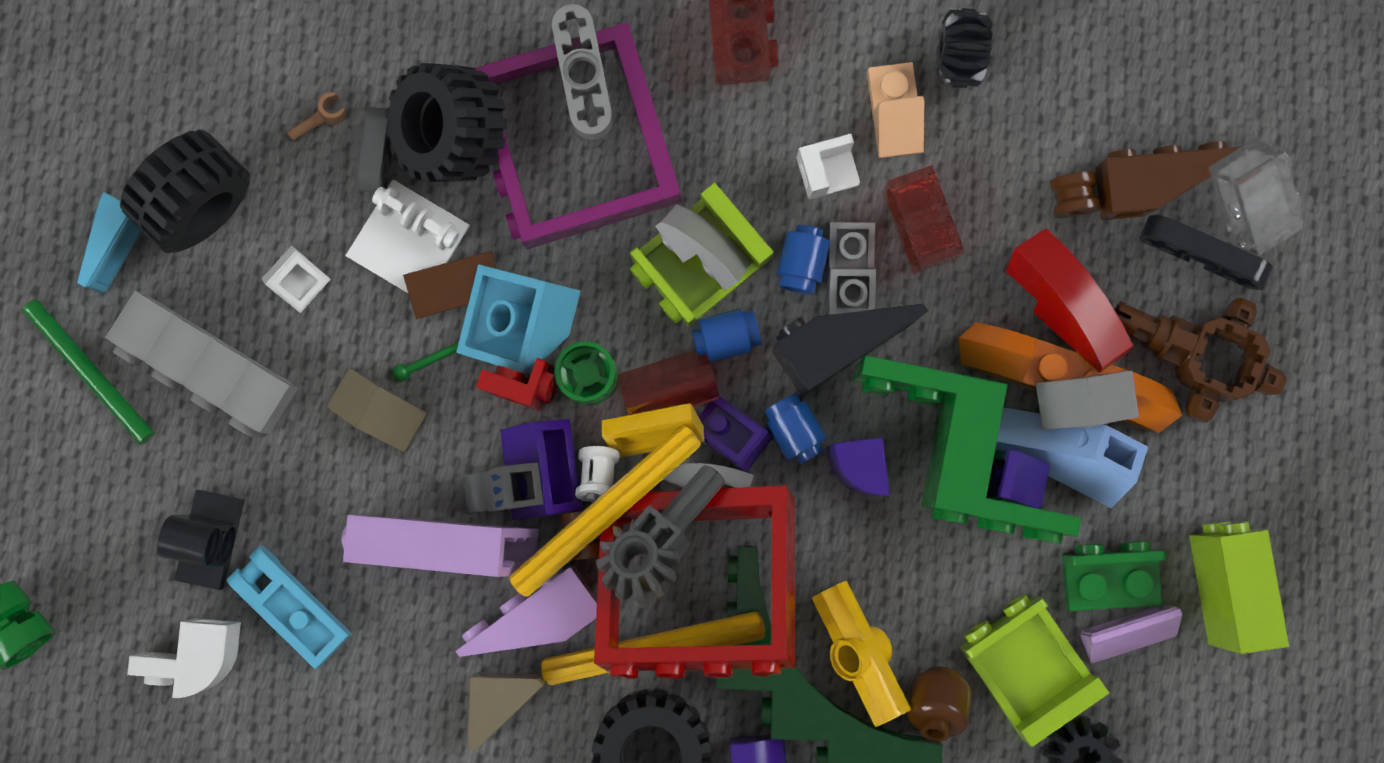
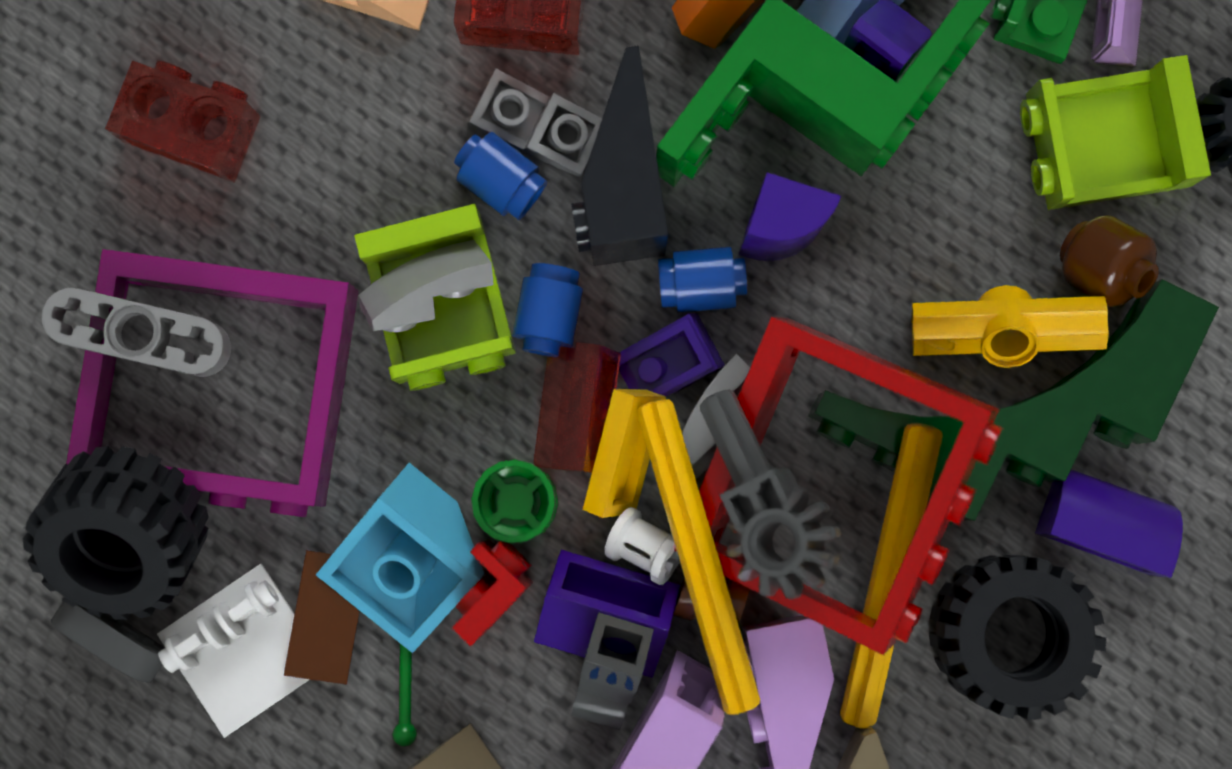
camera: 65 degrees left, 0 degrees up
(319, 117) = (32, 690): medium nougat hand -> none
(828, 166) = (400, 93): white panel -> none

